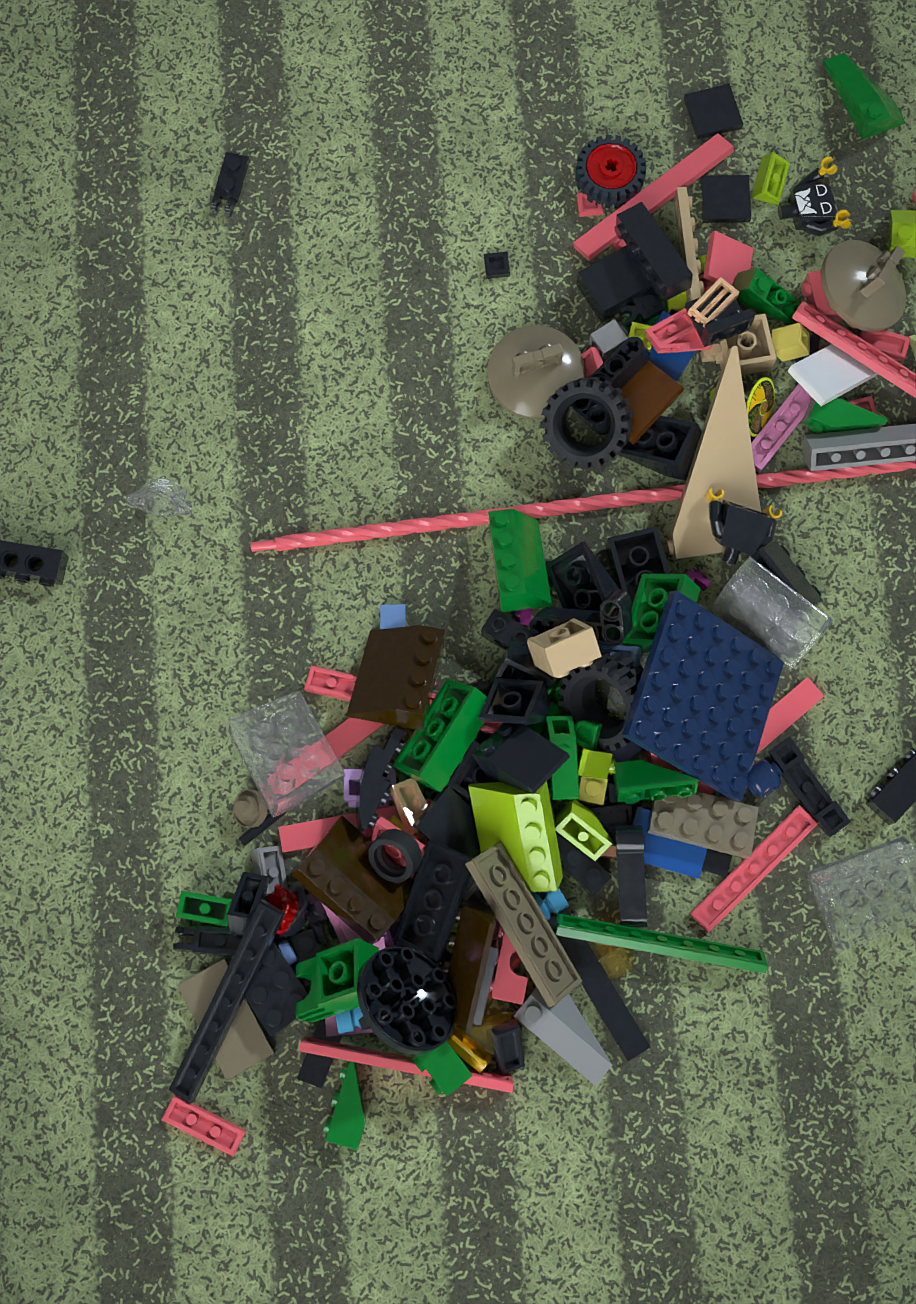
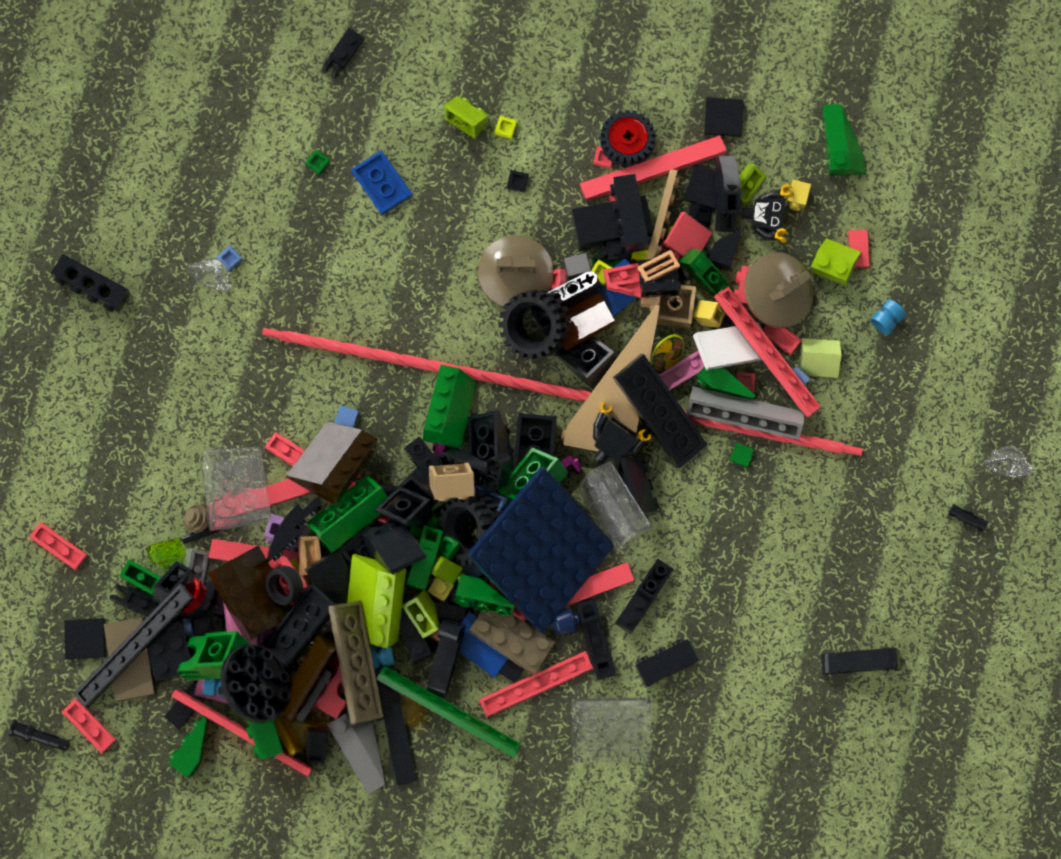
camera: 15 degrees right, 0 degrees up
(84, 904) = (58, 546): none -> coral tile
(130, 1163) = (29, 734): none -> black pin
(159, 1013) = (84, 639): none -> black tile
(178, 472) = (230, 258): none -> medium blue tile
(225, 864) = (165, 552): none -> clear neon green slope
(245, 322) = (317, 162): none -> green tile
(332, 320) = (381, 182): none -> blue tile
(406, 208) = (465, 116): none -> lime slope
(459, 207) = (505, 127): none -> neon yellow tile
(731, 228) = (700, 213): none -> black slope
(755, 186) = (729, 195): none -> black slope
(779, 262) = (724, 250): none -> black slope
(780, 475) = (660, 410): none -> black plate
(845, 171) = (800, 194): none -> light yellow brick
(845, 712) = (644, 596): none -> black slope
(893, 499) = (741, 455): none -> green tile

